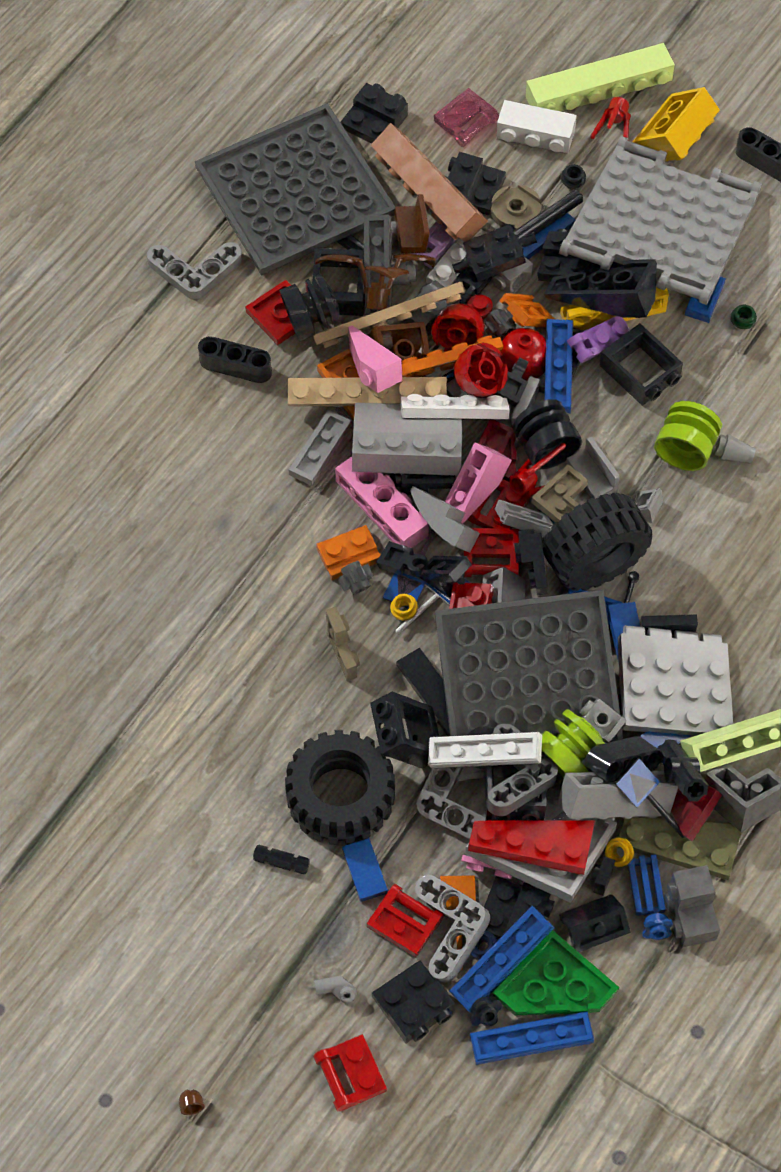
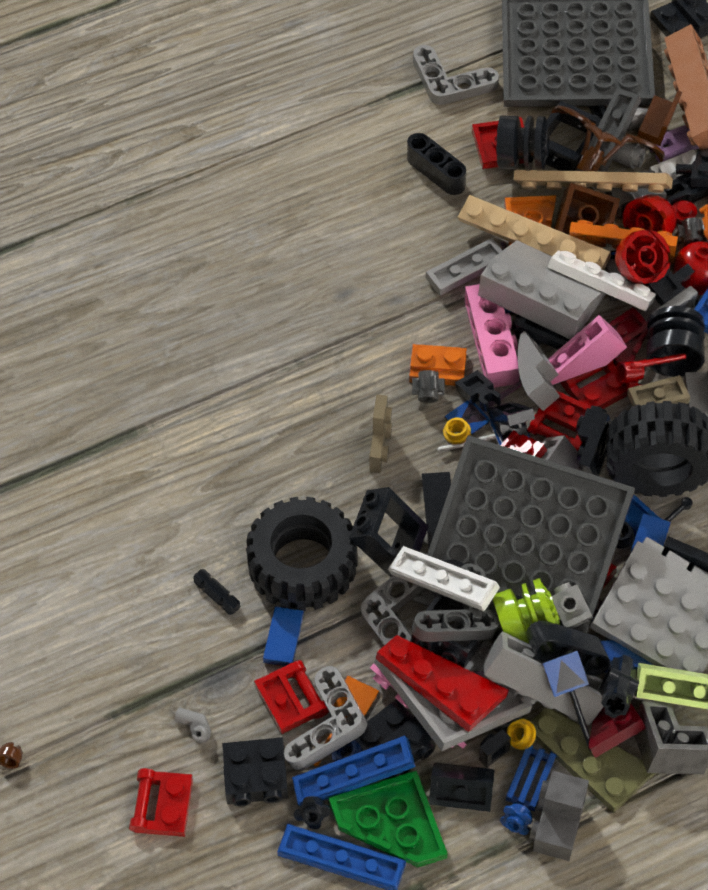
camera: 30 degrees right, 5 degrees down
(374, 363) = (551, 212): bright pink slope -> none
(523, 518) = (605, 398): light grey plate -> none

